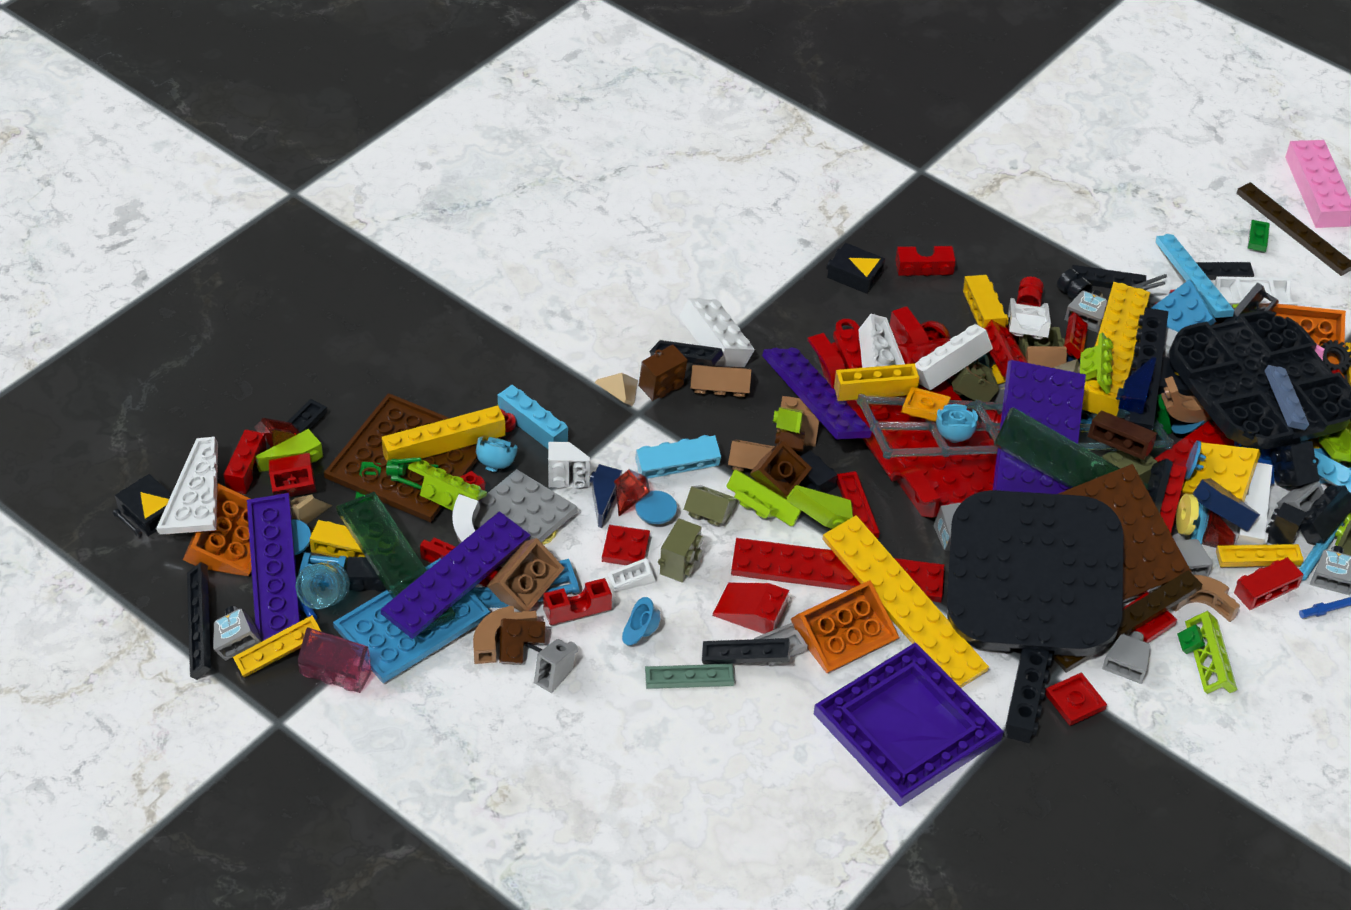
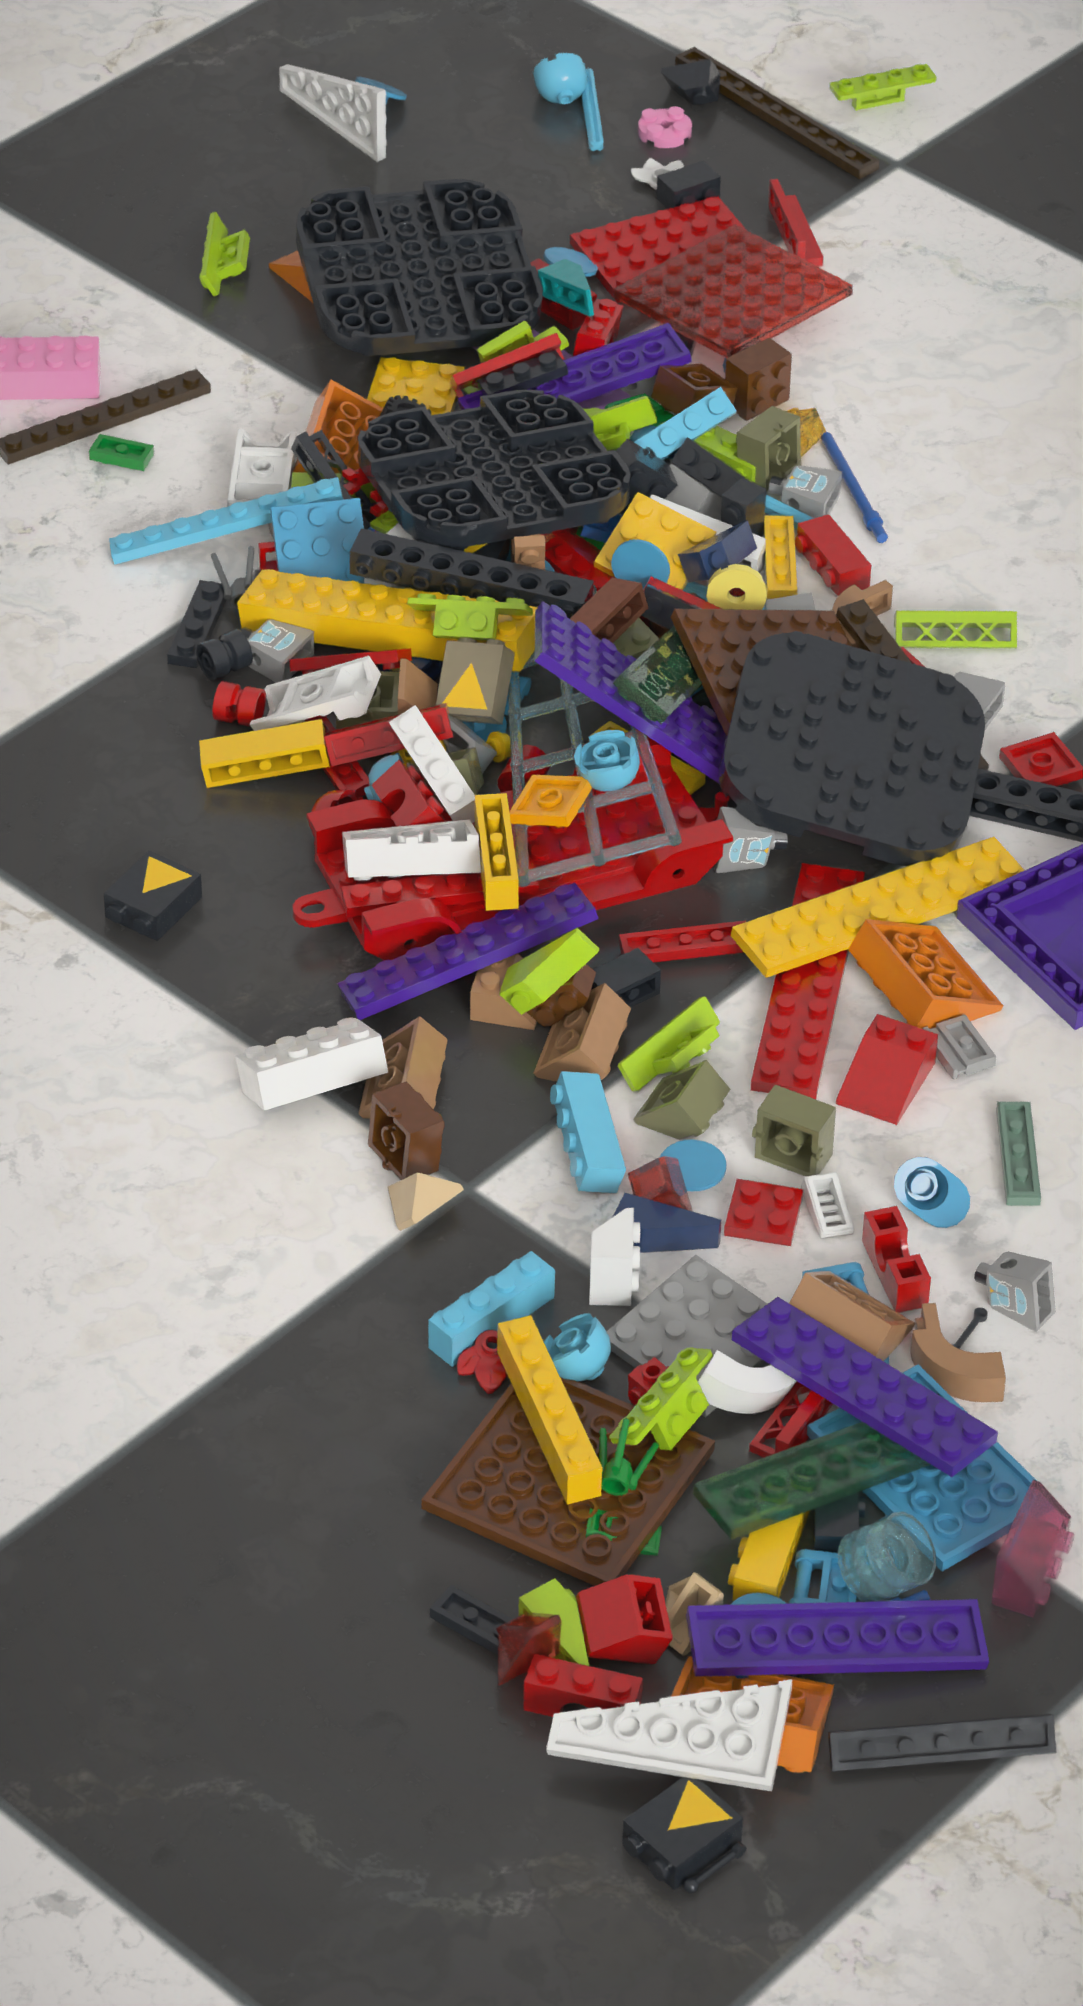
camera: 85 degrees left, 5 degrees down
(234, 633) = (974, 1683): light grey torso -> none
(274, 647) = (1000, 1627): yellow plate -> none
(514, 634) = (962, 1330): reddish brown plate -> none
(693, 353) = (354, 1107): black plate -> none
(746, 651) = (984, 1076): black plate -> none
(781, 469) = (638, 1004): reddish brown slope -> none
(822, 507) = (707, 967): lime slope -> none
(911, 263) = (145, 813): red arch -> none
(1136, 388) = (527, 574): clear blue slope -> none
(1191, 639) = (934, 641): green plate -> none
(1226, 269) = (193, 493): black plate -> none
(1286, 397) = (554, 444): sand blue plate -> none

